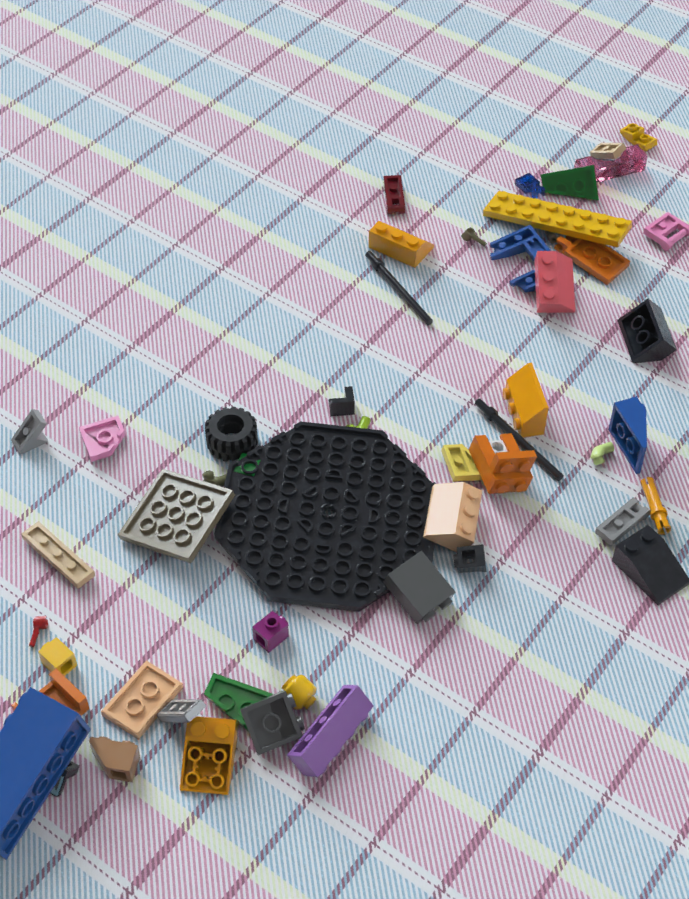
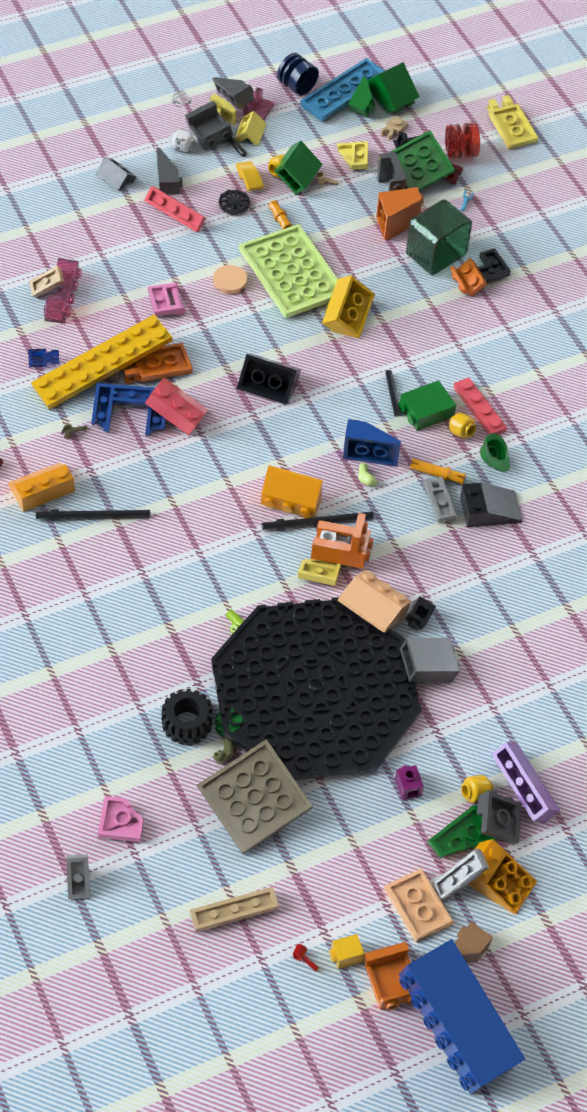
camera: 65 degrees left, 5 degrees up
(344, 405) = (202, 619): black panel -> none
(572, 182) = (67, 324): green wing -> none
(635, 135) = (44, 253): yellow slope -> none

